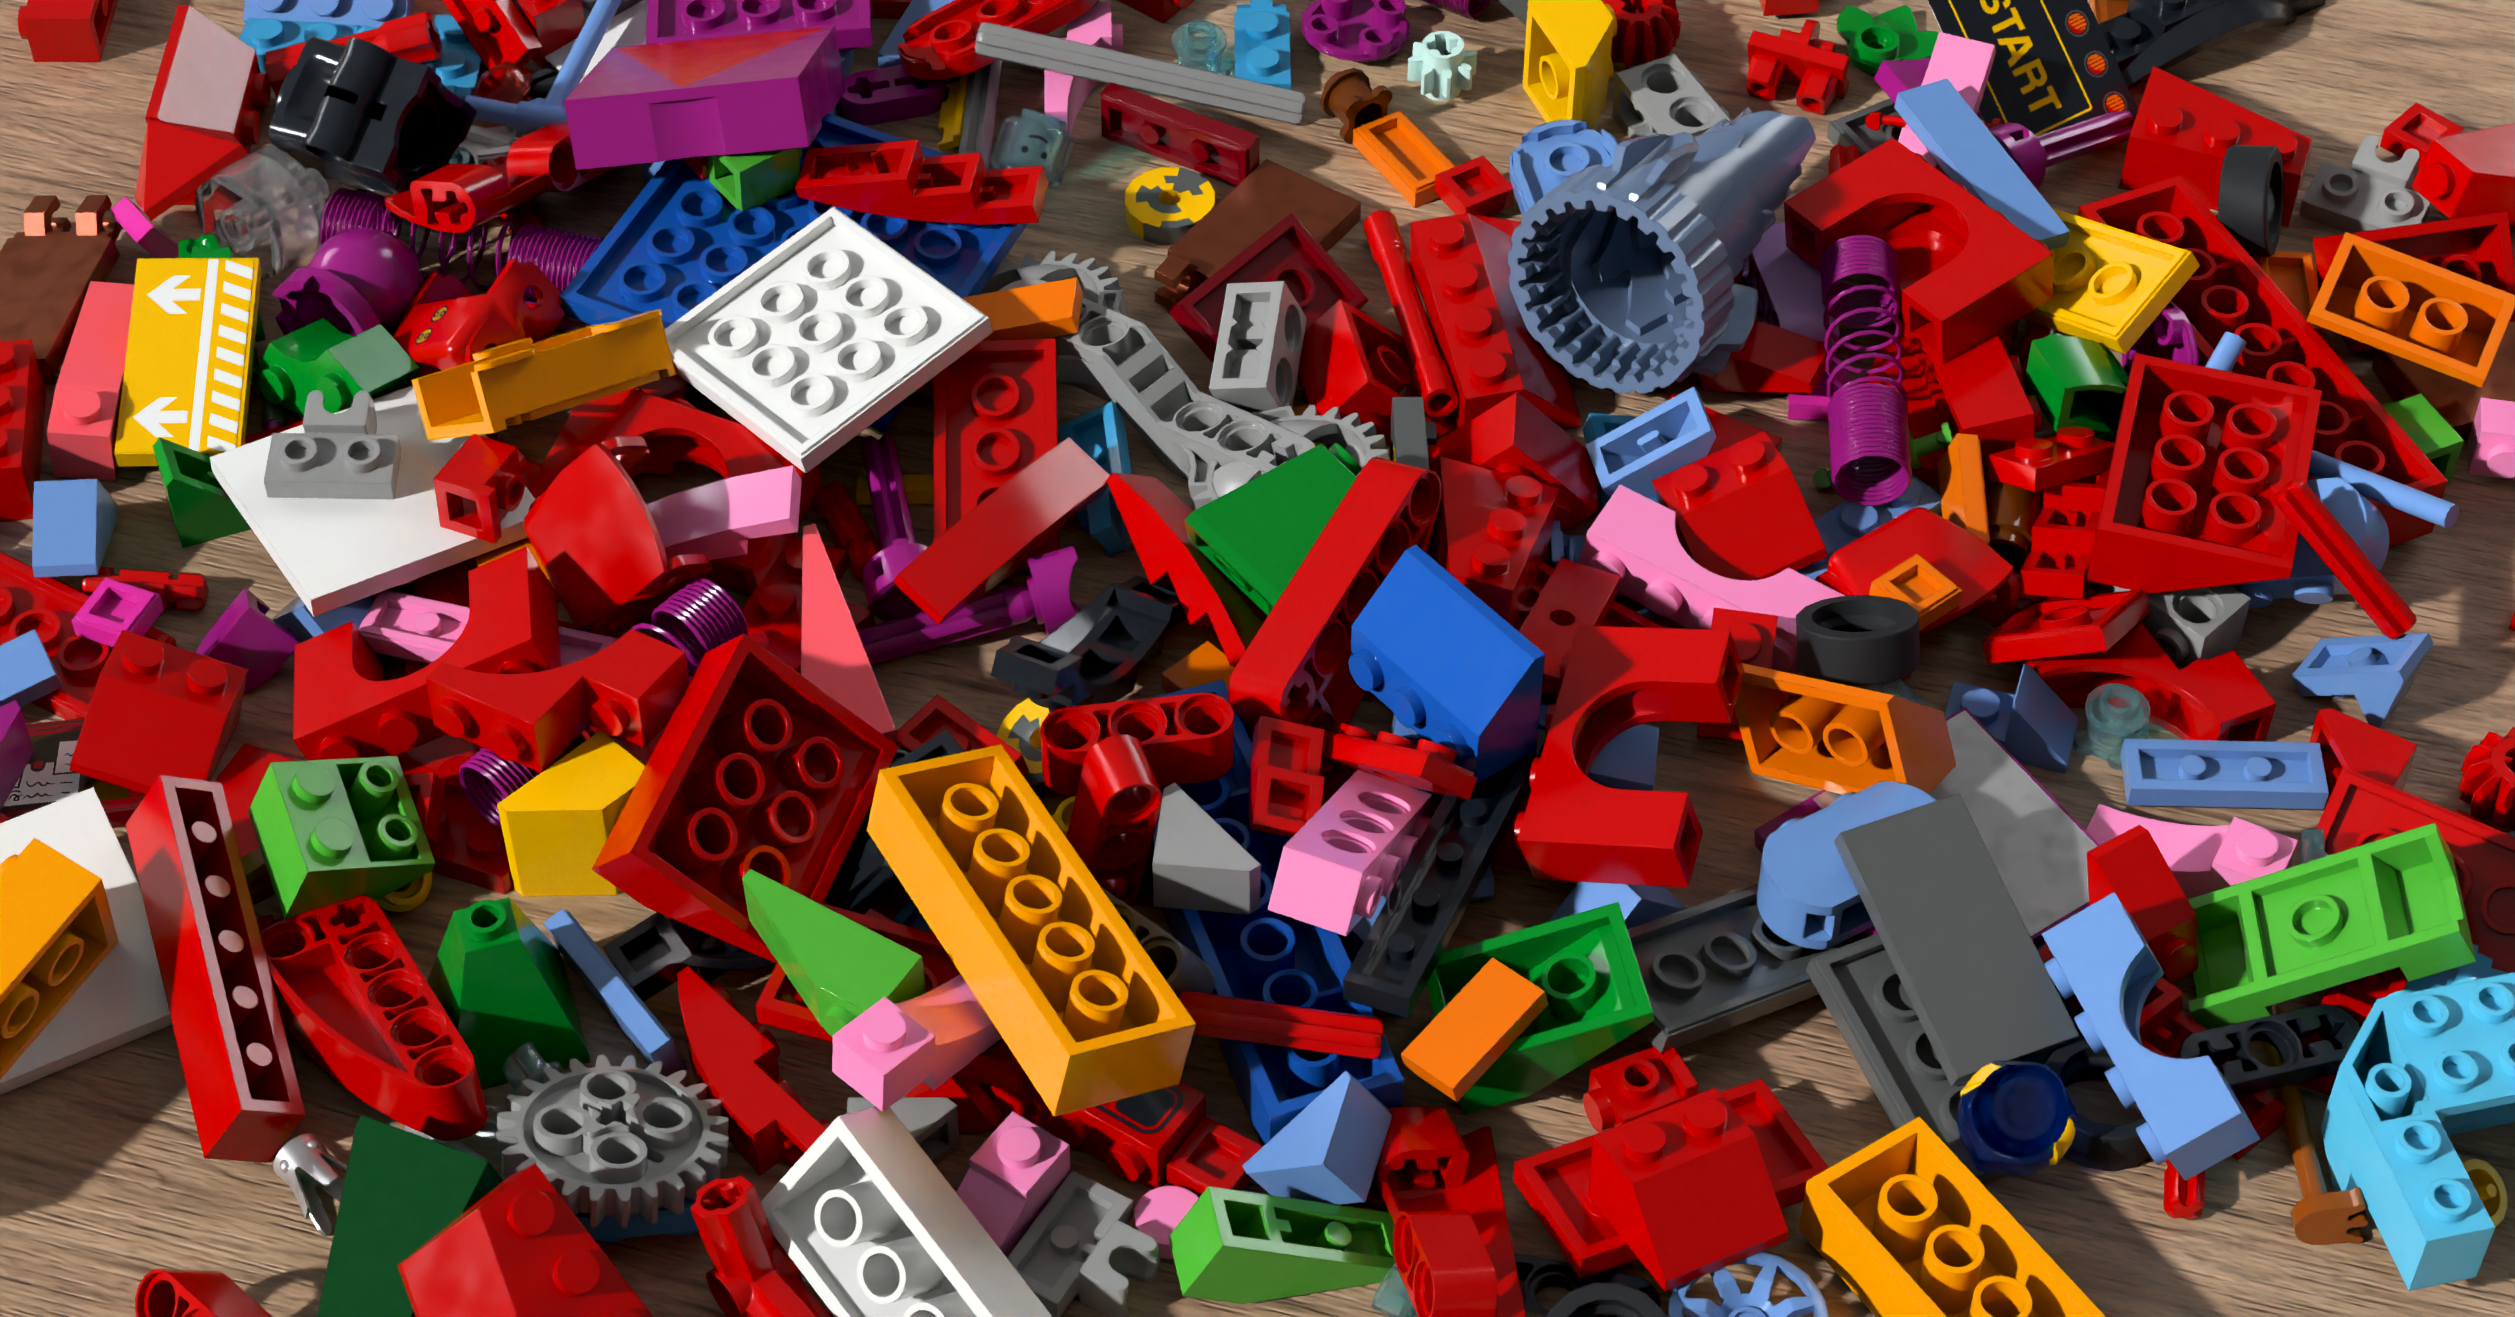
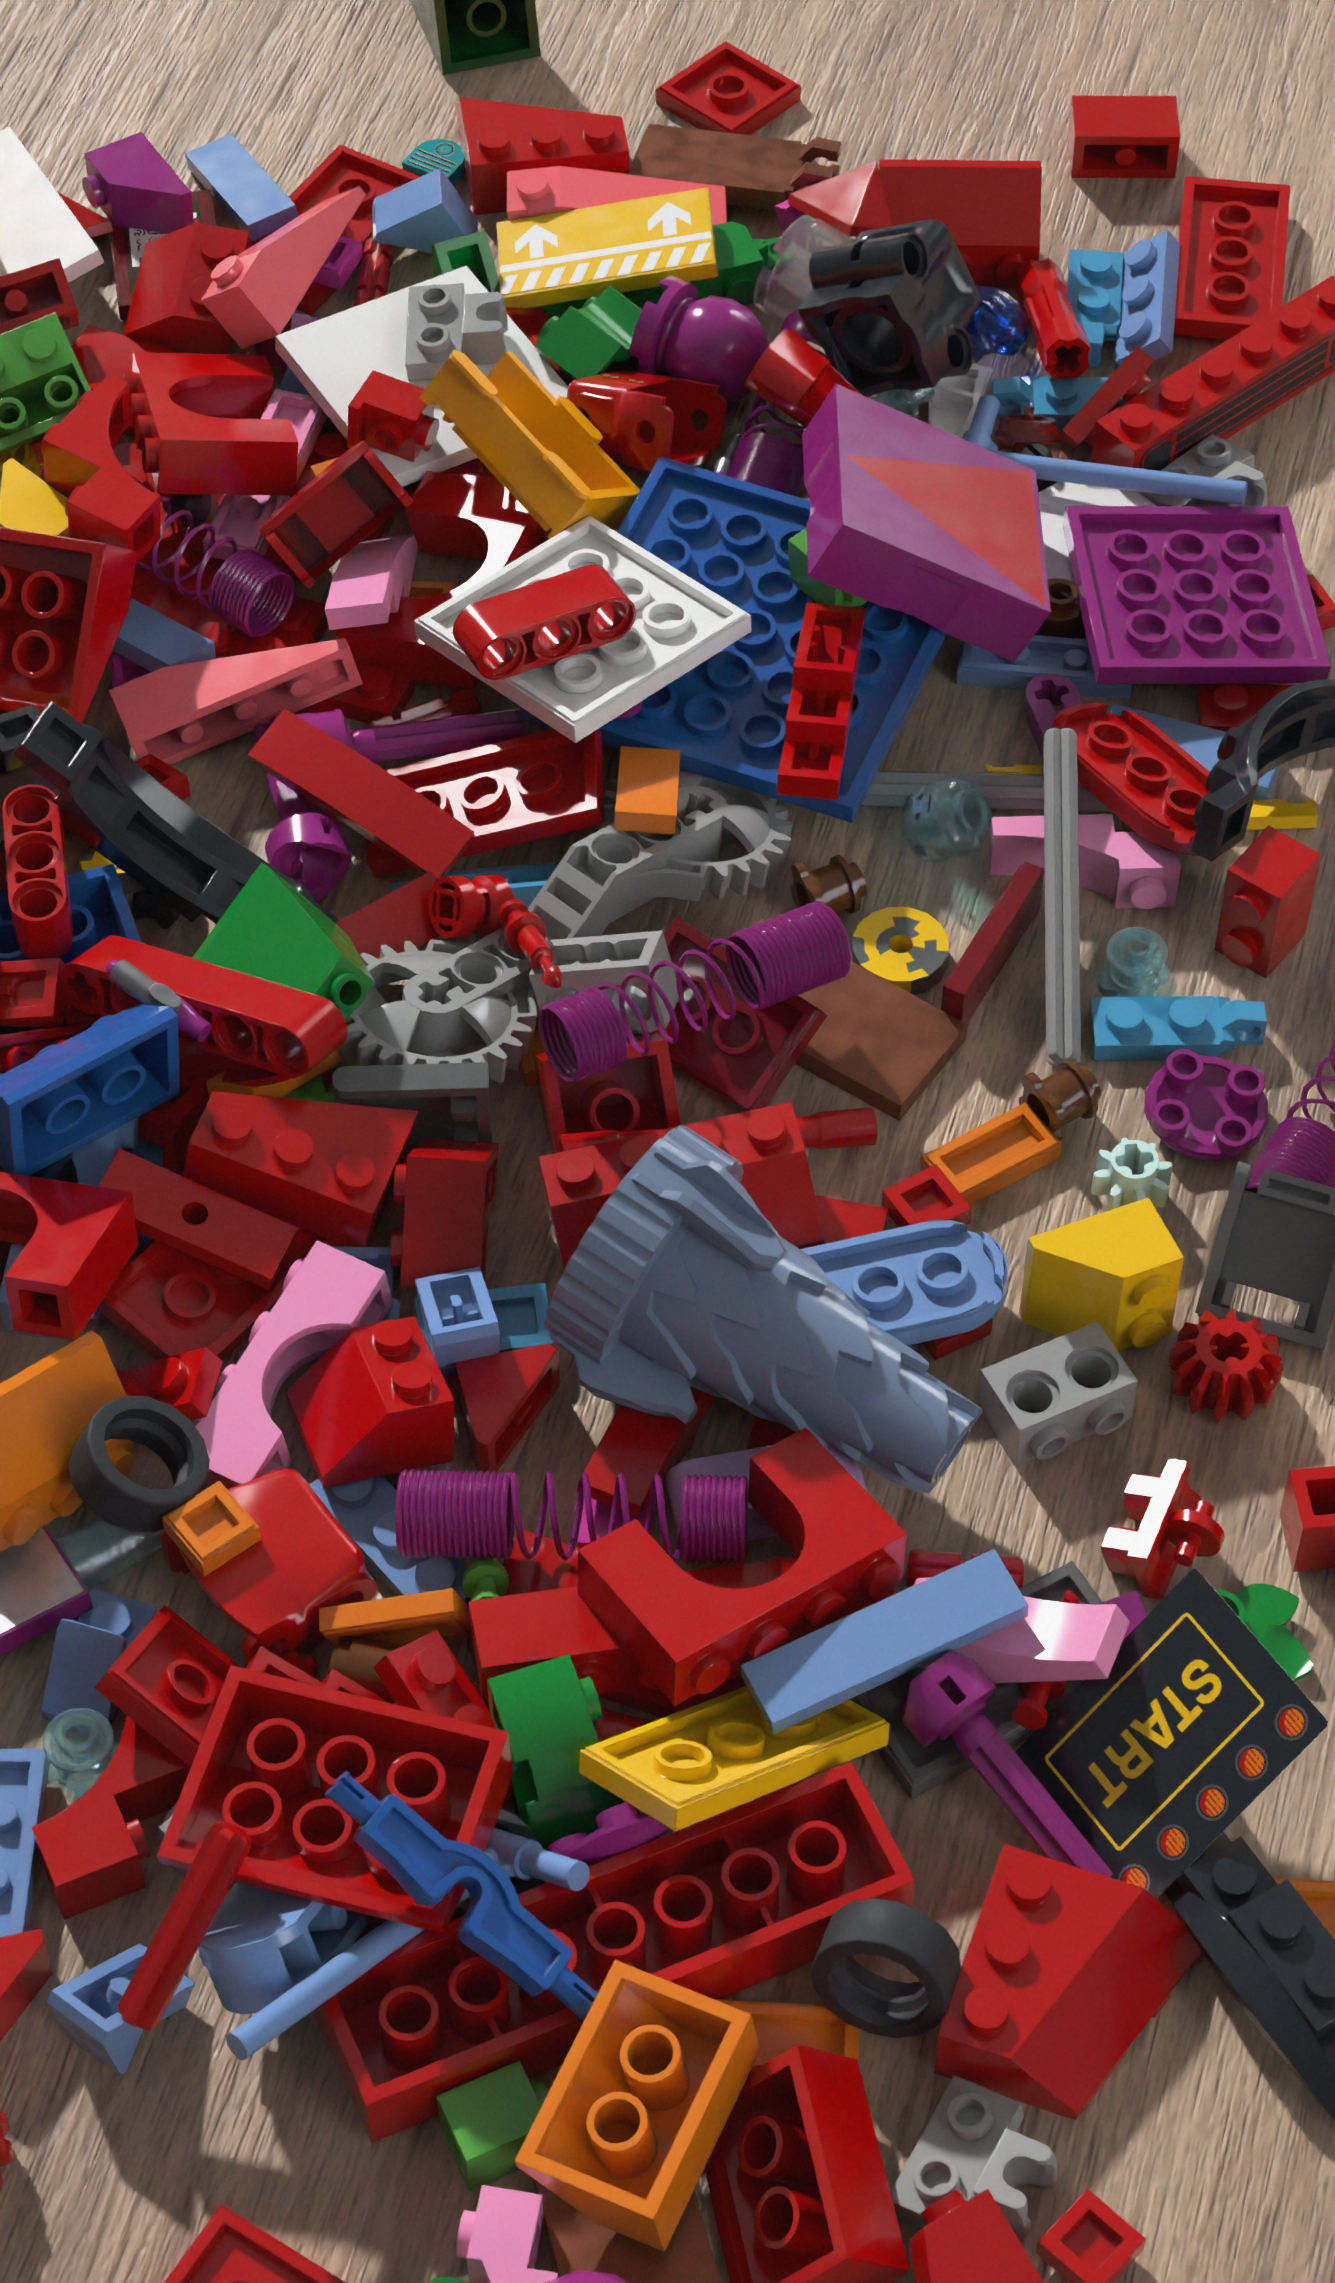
camera: 90 degrees right, 5 degrees up
(164, 608) = (265, 283): none -> coral slope
(853, 330) = (544, 622): none -> red beam
(1108, 237) = (836, 885): none -> reddish brown brick
(1146, 436) = (466, 905): none -> red wheel
(1227, 383) = (527, 934): none -> red piece
(1275, 220) = (764, 962): none -> magenta piece
(1351, 600) = (153, 993): none -> flat silver piece
(2294, 371) = (431, 1866): none -> blue piece

